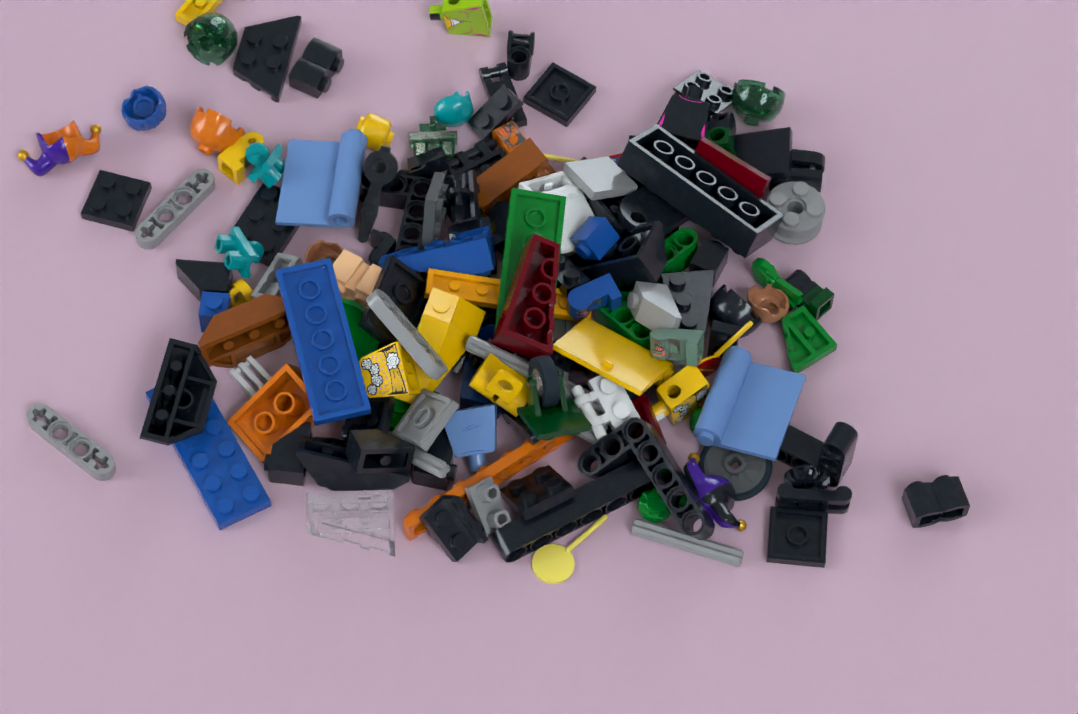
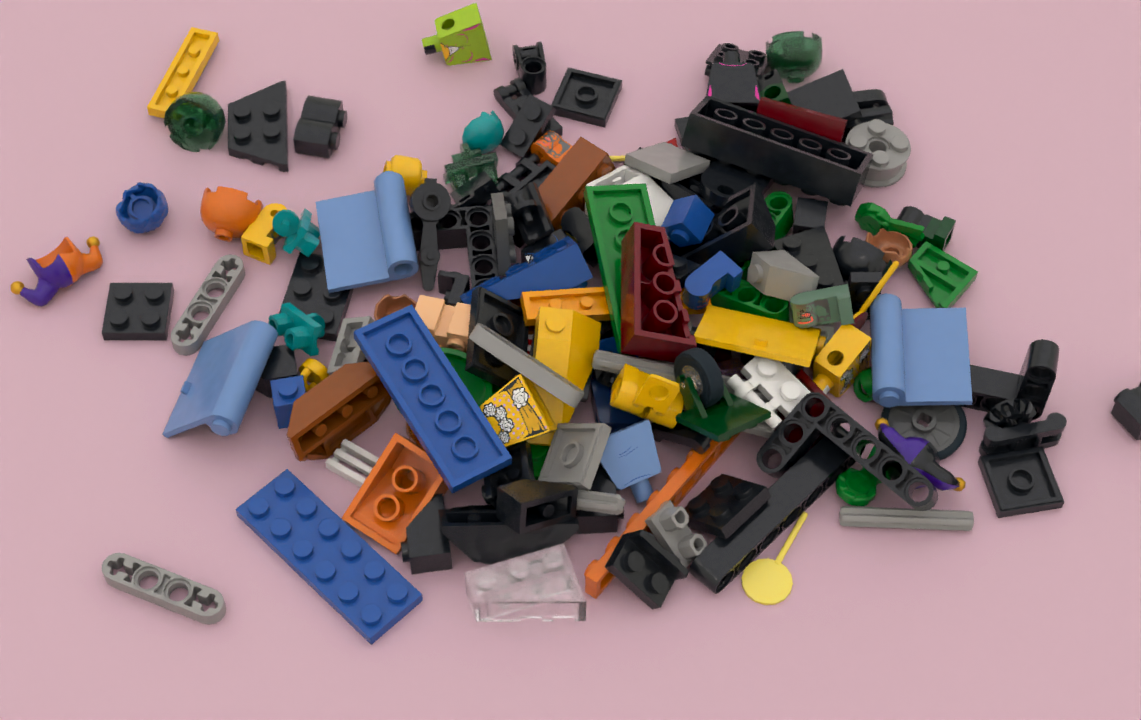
camera: 15 degrees left, 5 degrees down
(165, 281) = (223, 380): none -> medium blue door
(180, 395) = (282, 500): black wedge -> none

